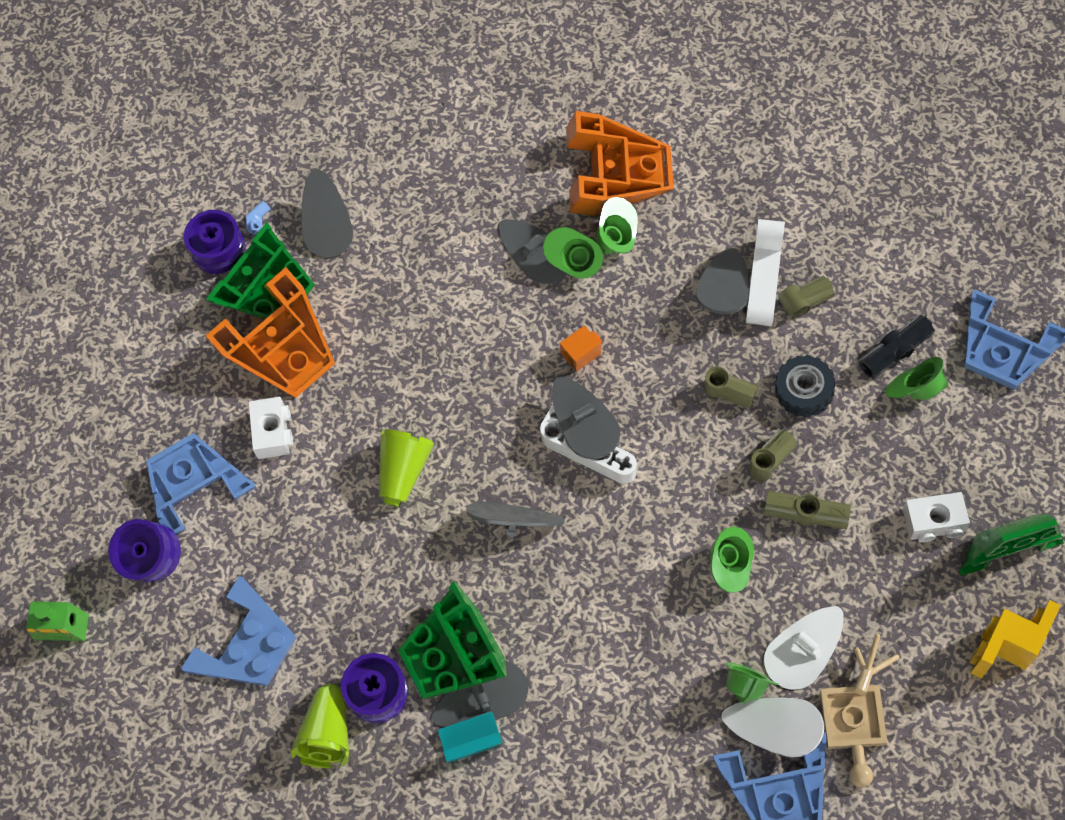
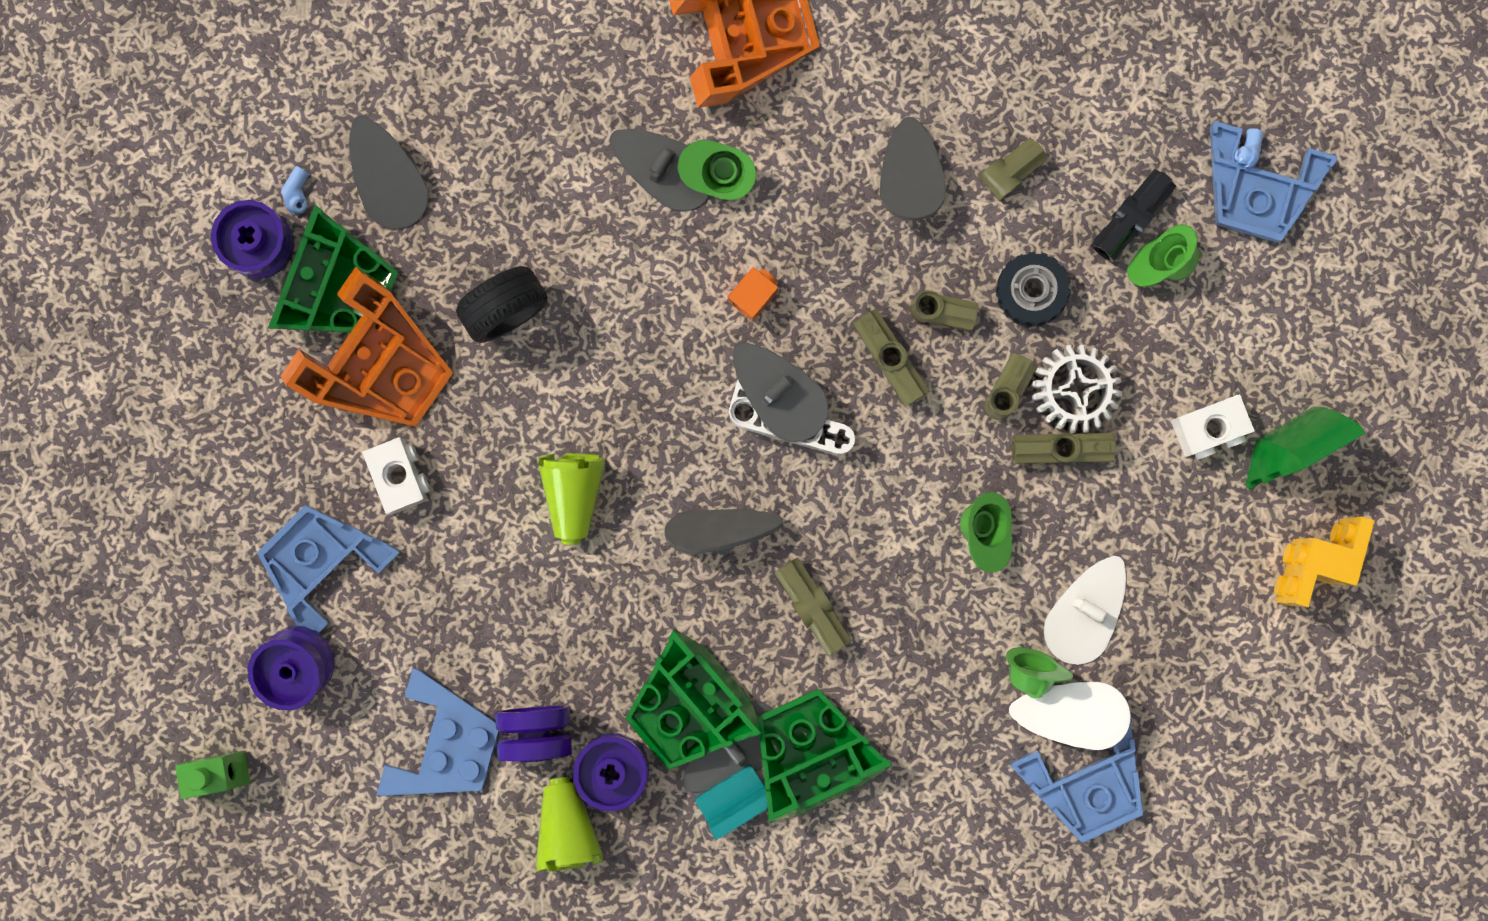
camera: 20 degrees left, 20 degrees up
(319, 640) = (534, 736): none -> dark purple wheel
(384, 314) = (501, 304): none -> black tyre
(545, 714) = (812, 756): none -> green wedge
(573, 593) = (813, 606): none -> olive piece
(617, 226) = (763, 120): bright green piece -> none
(684, 428) = (878, 339): none -> olive piece
(765, 272) = (958, 148): white beam -> none
(815, 466) = (1074, 373): none -> white gear
(854, 723) = (1157, 688): tan plate -> none
(866, 669) = (1168, 626): tan plant -> none
(1001, 316) = (1251, 150): none -> light blue arm

